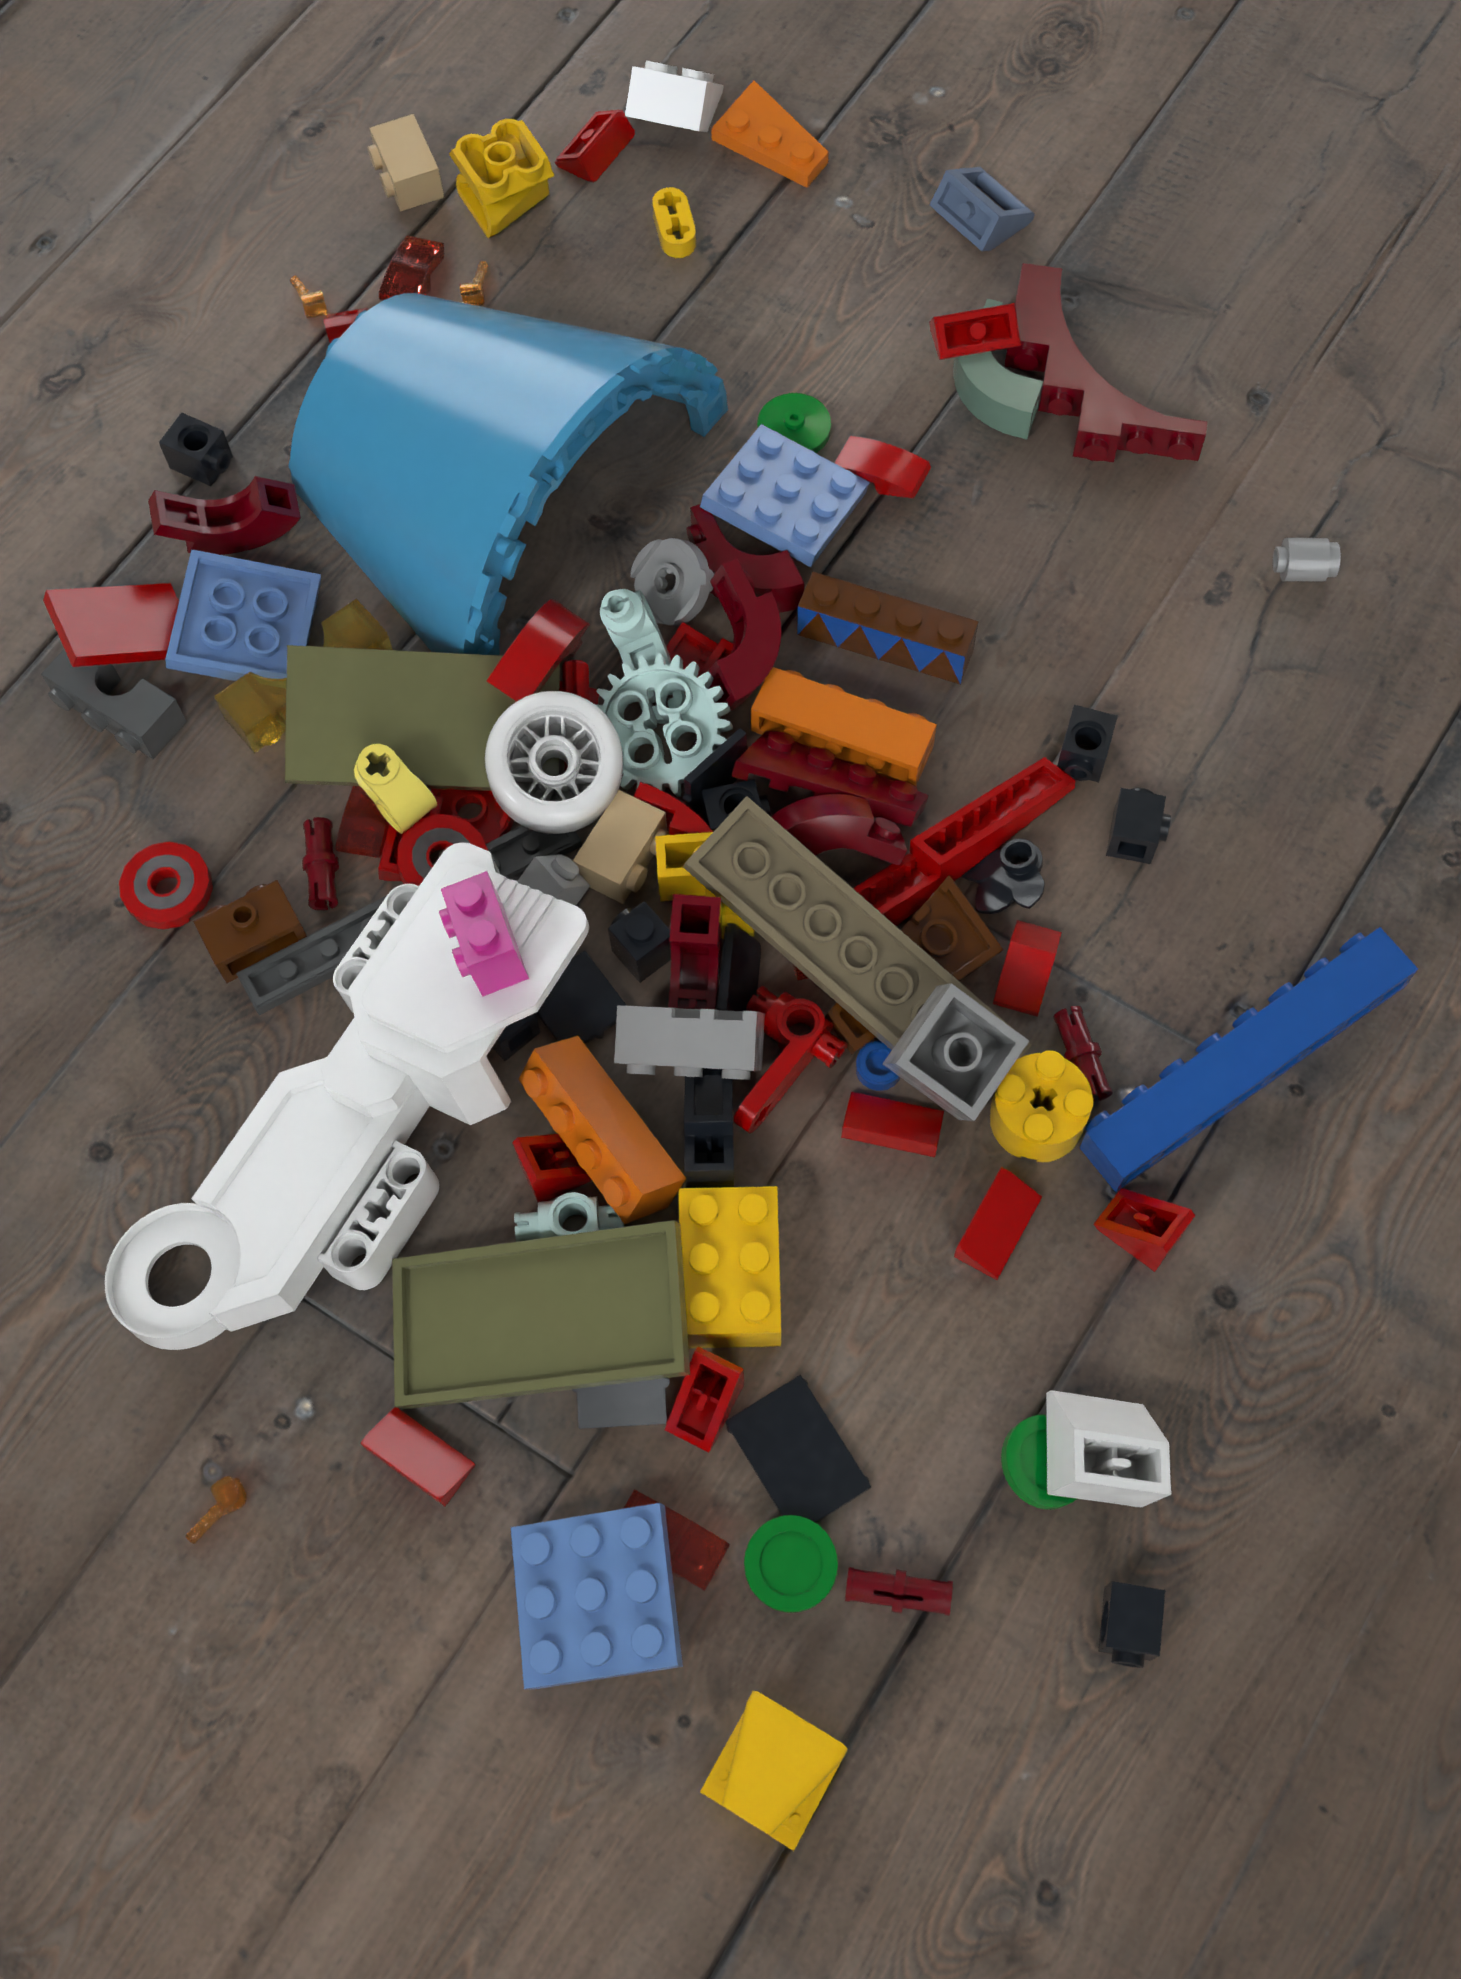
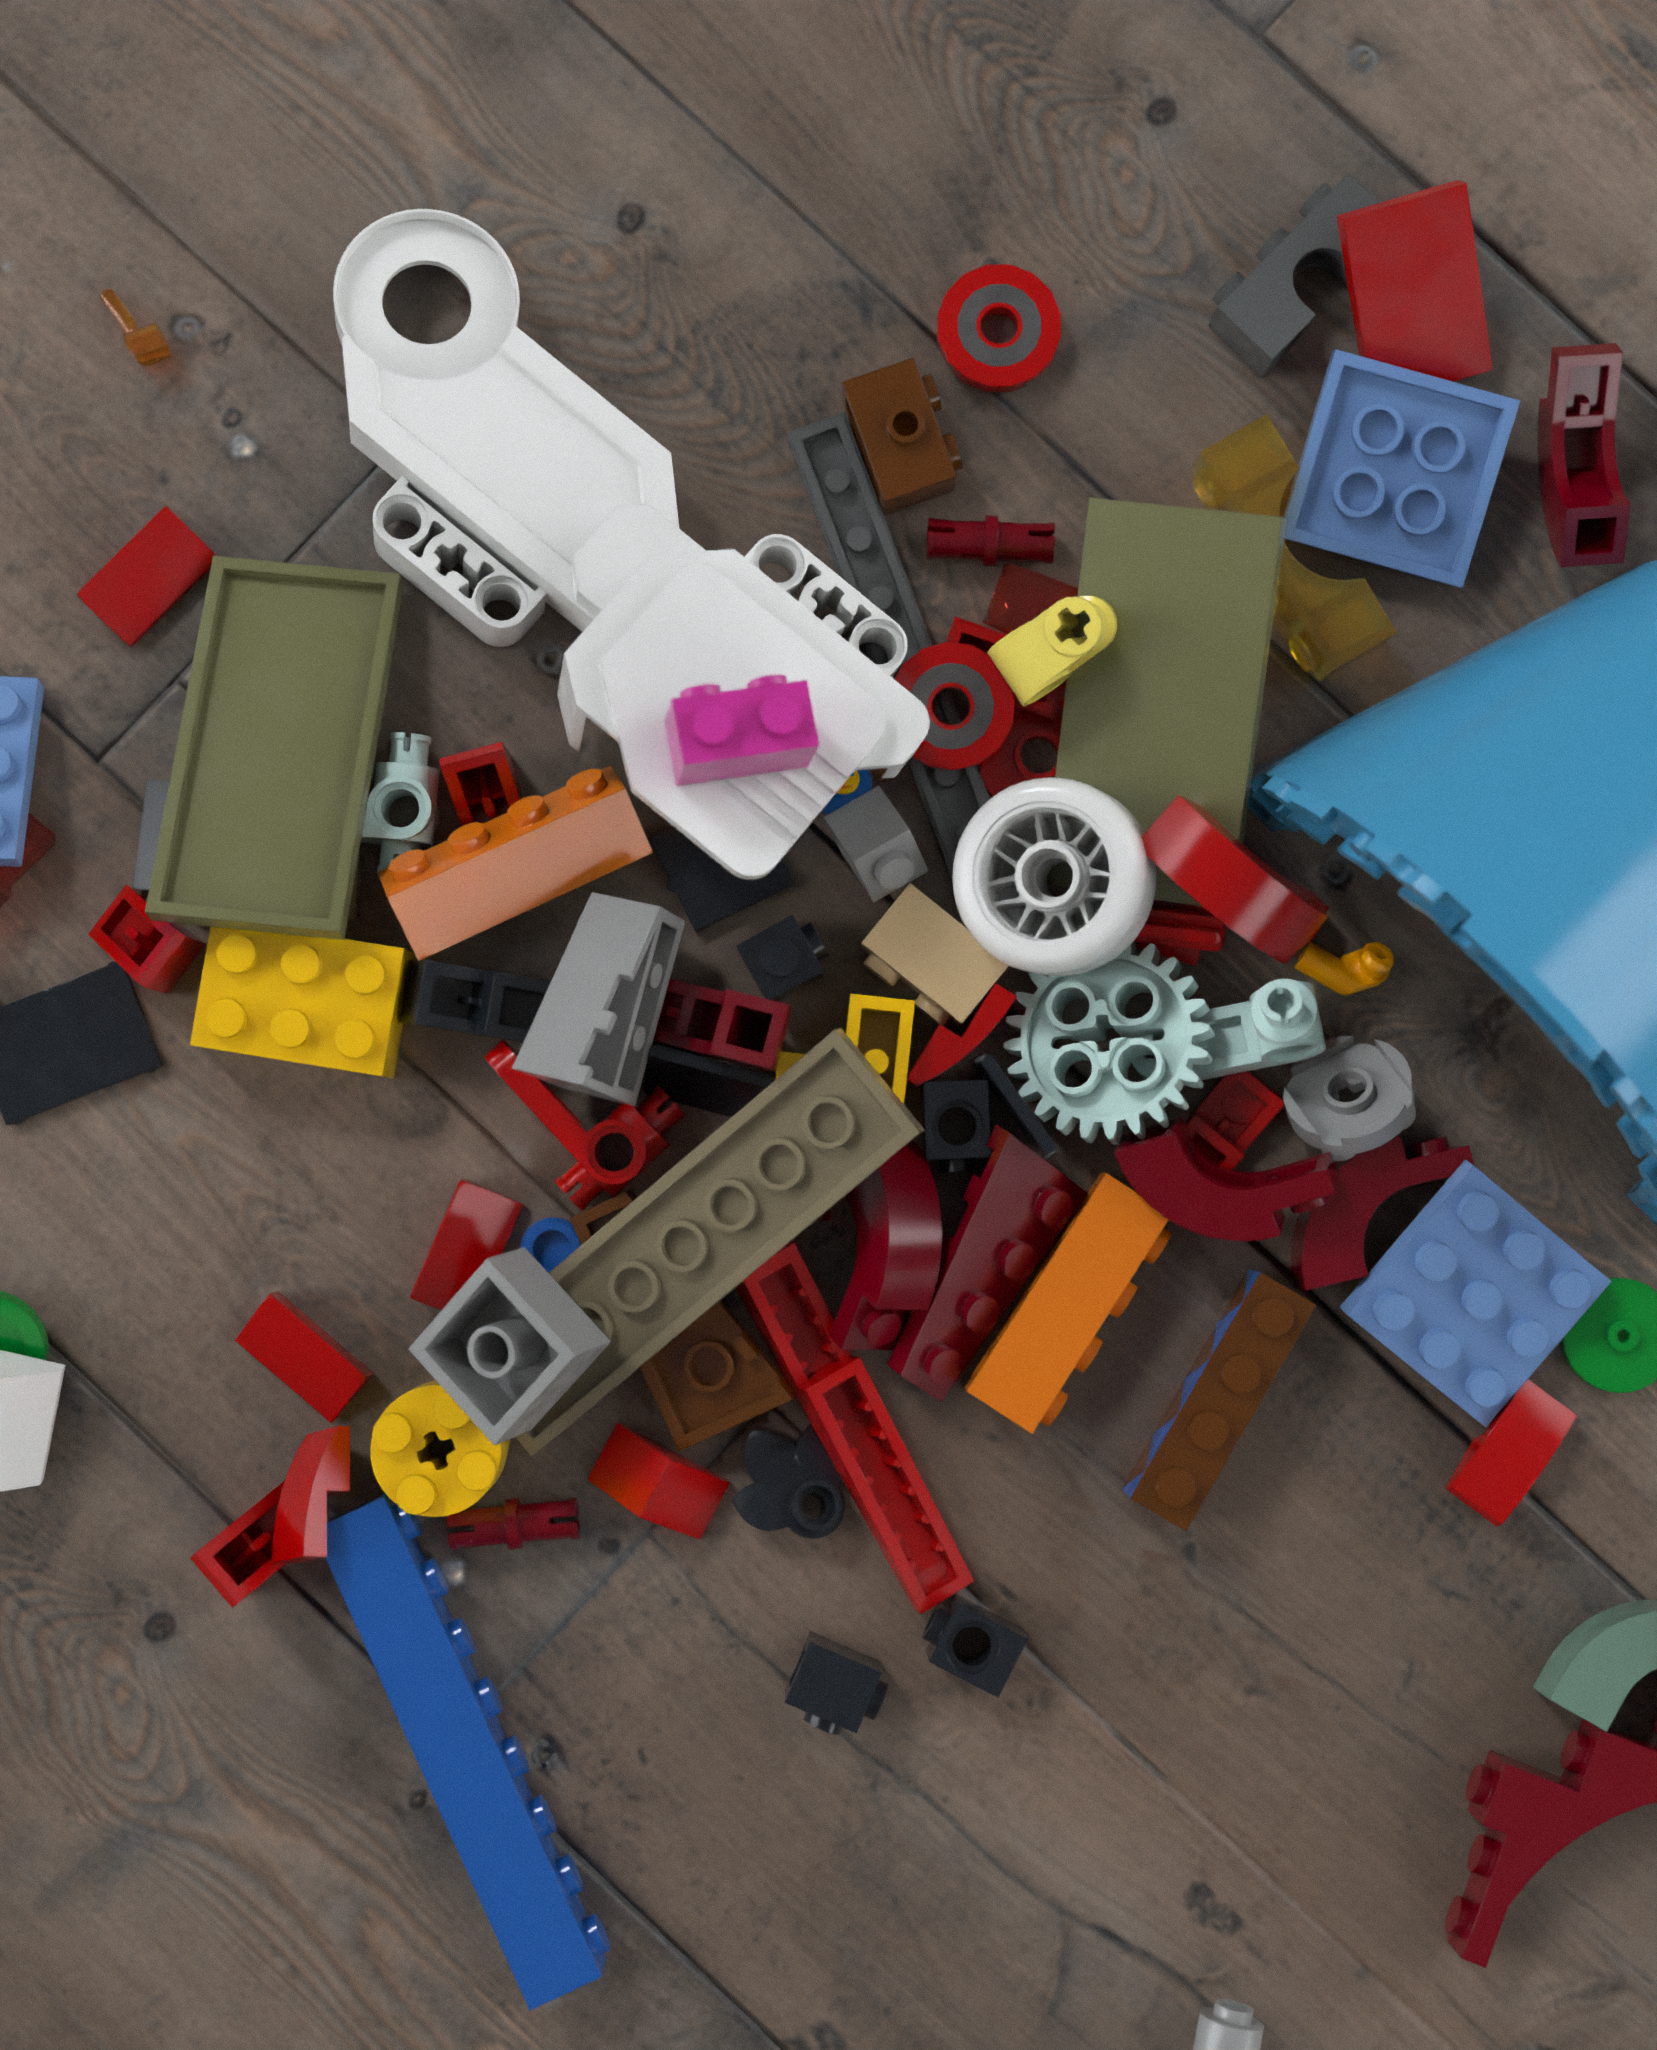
camera: 90 degrees right, 20 degrees up
(586, 600) = (1349, 972): none -> light orange arm
(1101, 1190) = (315, 1473): none -> red slope

